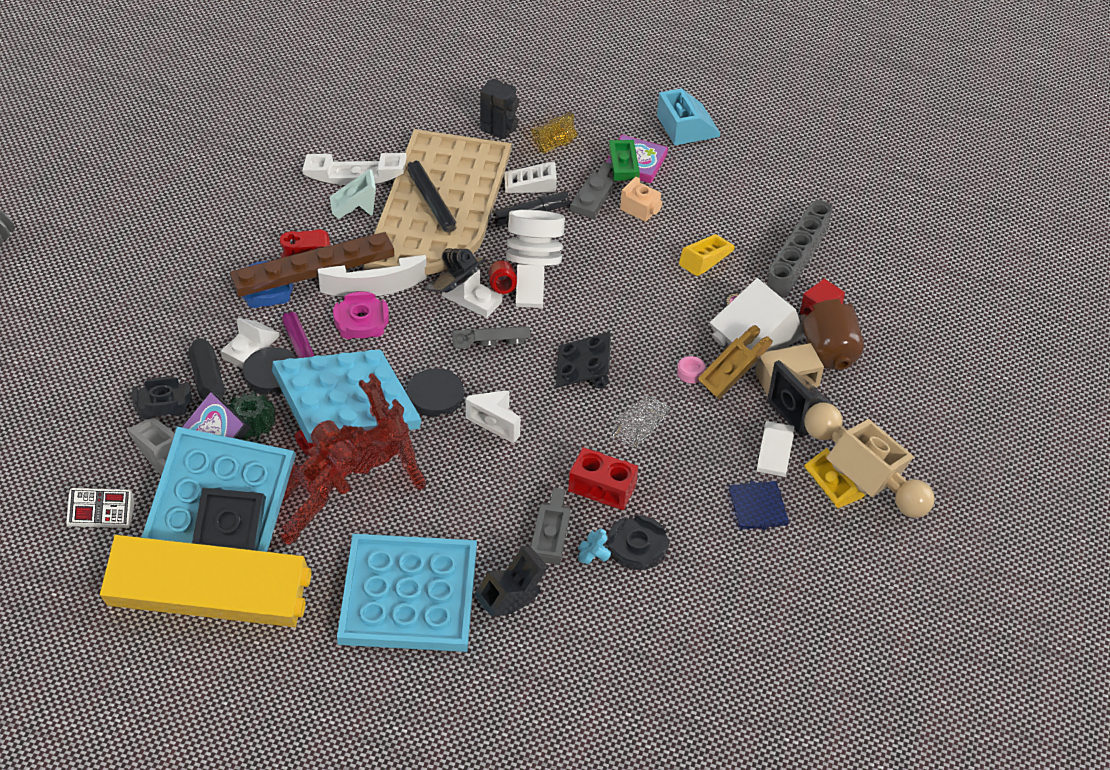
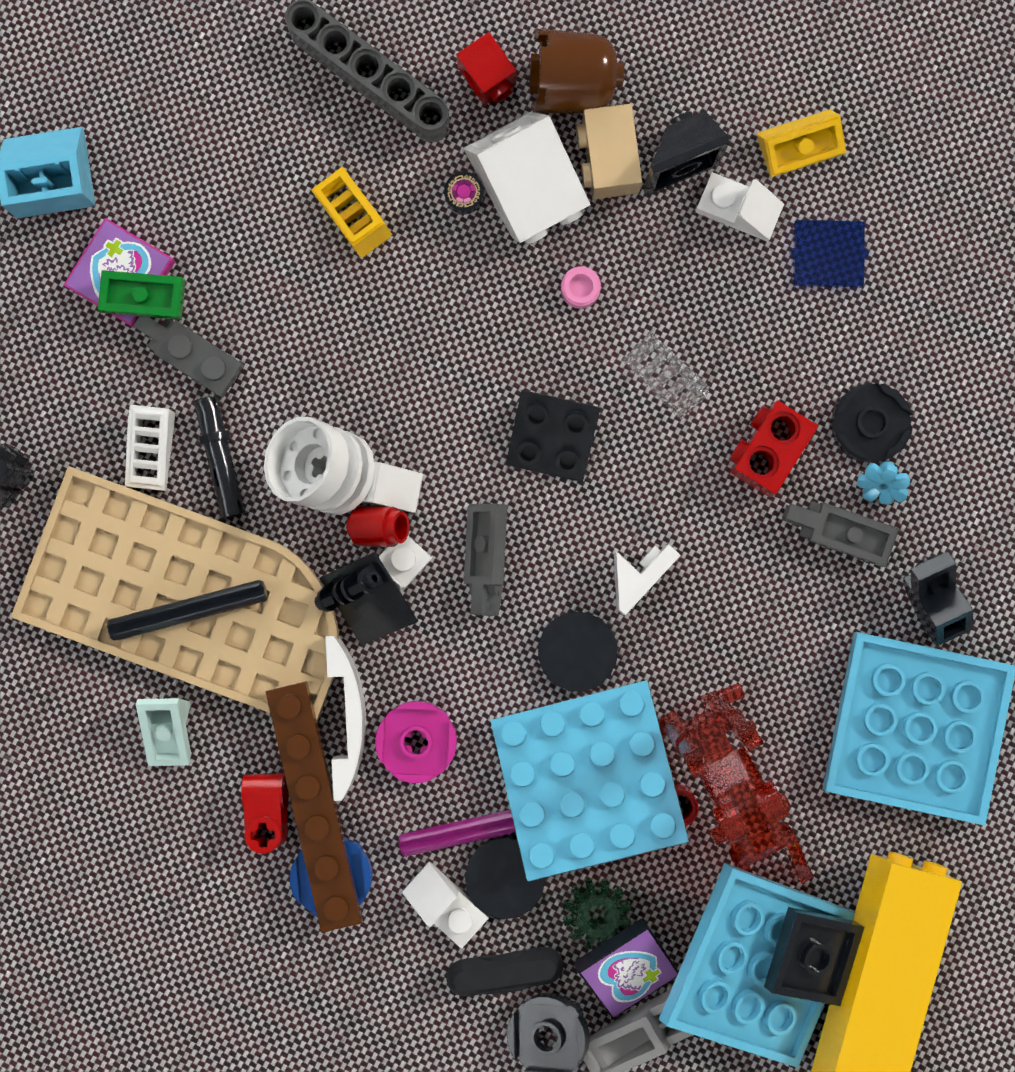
camera: 75 degrees left, 40 degrees up
(342, 173) = (91, 722): white slope -> none
(555, 133) = (51, 388): clear yellow hips -> none
(640, 200) = (228, 299): light nougat brick -> none
(734, 362) = (604, 226): pearl gold hinge -> none
(870, 459) = (808, 88): tan brick -> none

